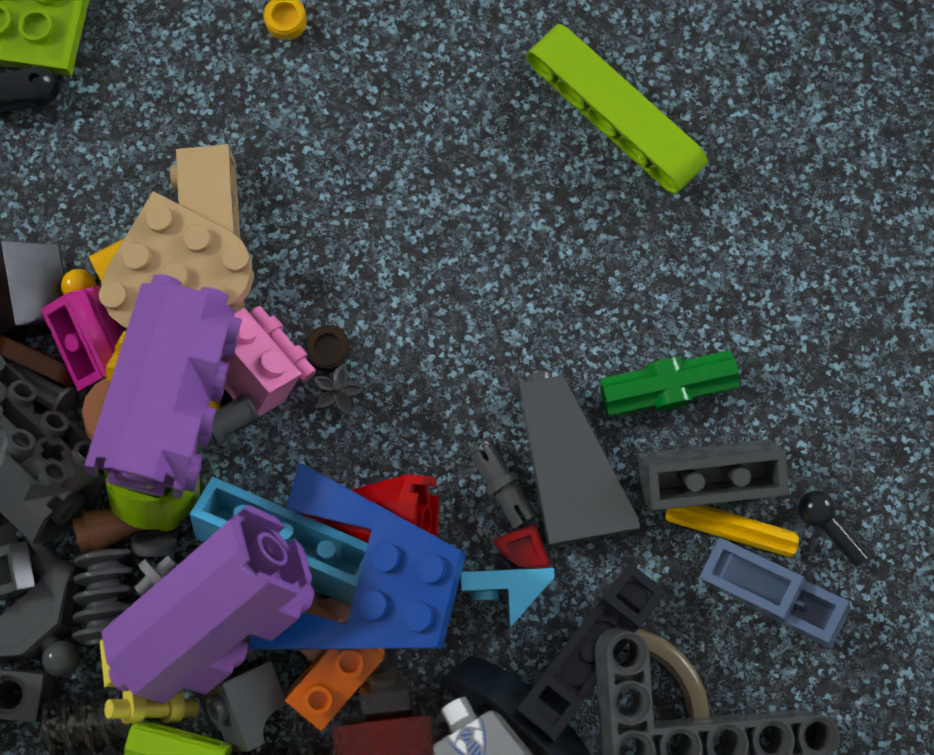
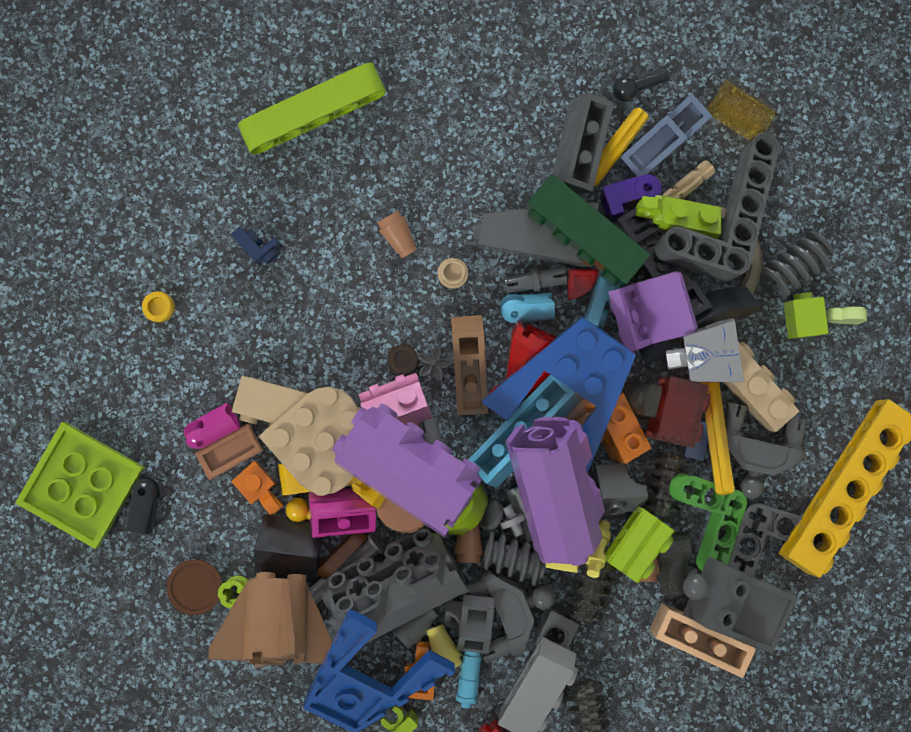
camera: 70 degrees left, 10 degrees up
(92, 220) = (255, 485): none -> orange plate
(125, 169) = (229, 451): none -> nougat tile
(149, 135) = (211, 427): none -> dark pink piece
(355, 433) = (469, 364): none -> medium nougat slope
(407, 97) = (251, 244): none -> dark blue bracket
(460, 487) = (528, 307): none -> medium azure piece
(469, 370) = (452, 273): none -> tan plate
(494, 277) = (397, 233): none -> nougat cone
(513, 655) = (653, 311): none -> medium lavender bracket
(592, 520) = (586, 231): none -> dark green brick
(669, 383) = (511, 148): green piece -> none
(671, 652) = (675, 212): none -> lime hinge
(672, 570) = (627, 194): none -> dark purple leg
(721, 649) = (691, 181): none -> tan axle
(857, 686) = (740, 111): none -> clear yellow slope

